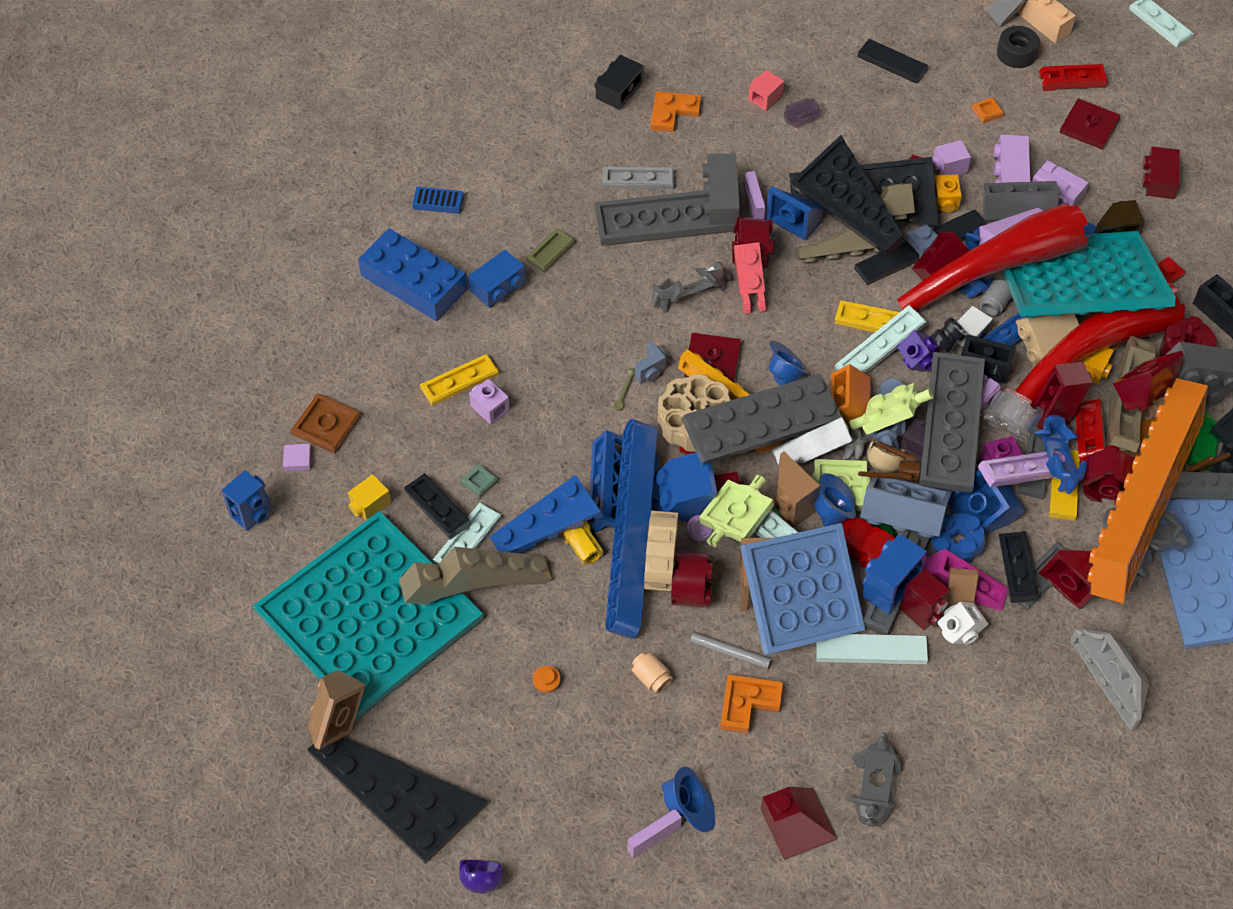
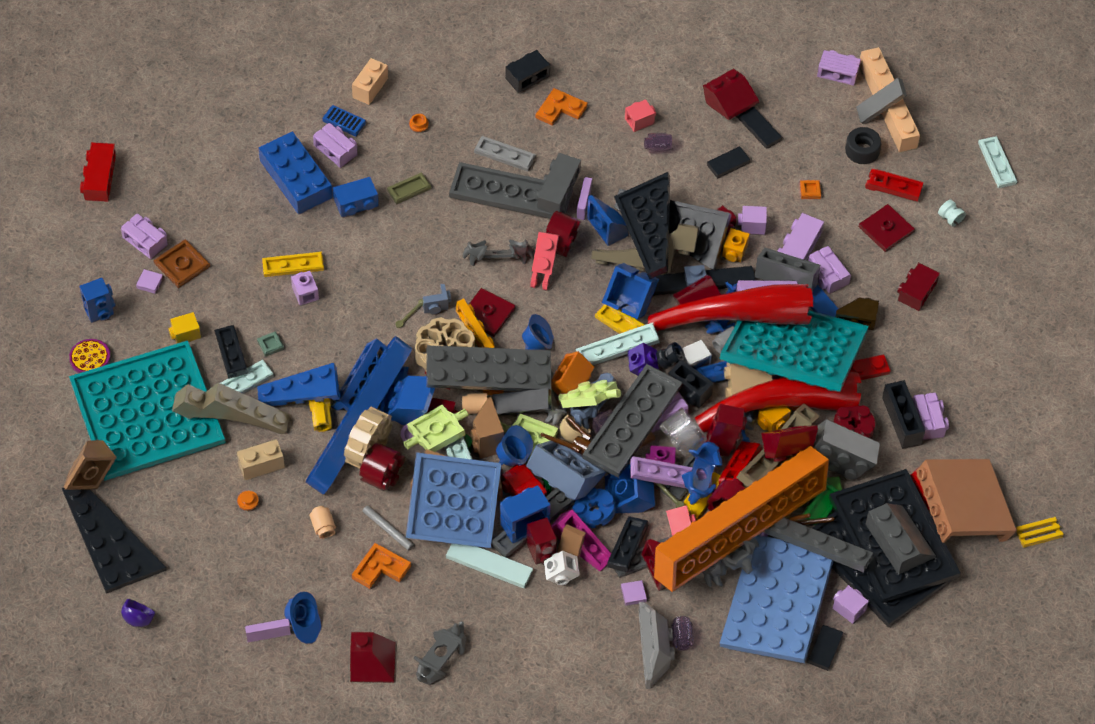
camera: 20 degrees right, 0 degrees up
(175, 350) = (98, 172): none -> red brick
(264, 571) = (89, 355): none -> tile
(266, 405) = (144, 235): none -> lavender brick
(442, 229) = (335, 144): none -> lavender brick
(448, 147) = (370, 81): none -> light nougat brick
(525, 175) = (418, 123): none -> orange plate
(539, 623) = (260, 459): none -> tan brick
(759, 463) = (473, 402): none -> light nougat brick
(851, 37) = (730, 94): none -> dark red slope
(866, 277) = (630, 288): none -> blue piece
(885, 109) = (728, 162): none -> black tile
(1049, 500) = (678, 503): none -> olive hinge
(1054, 622) = (633, 592): none -> lavender tile
(1067, 519) = (680, 518): none -> coral brick
(1140, 647) = (682, 633): none -> clear purple brick
(1148, 85) = (951, 212): none -> light aqua wheel

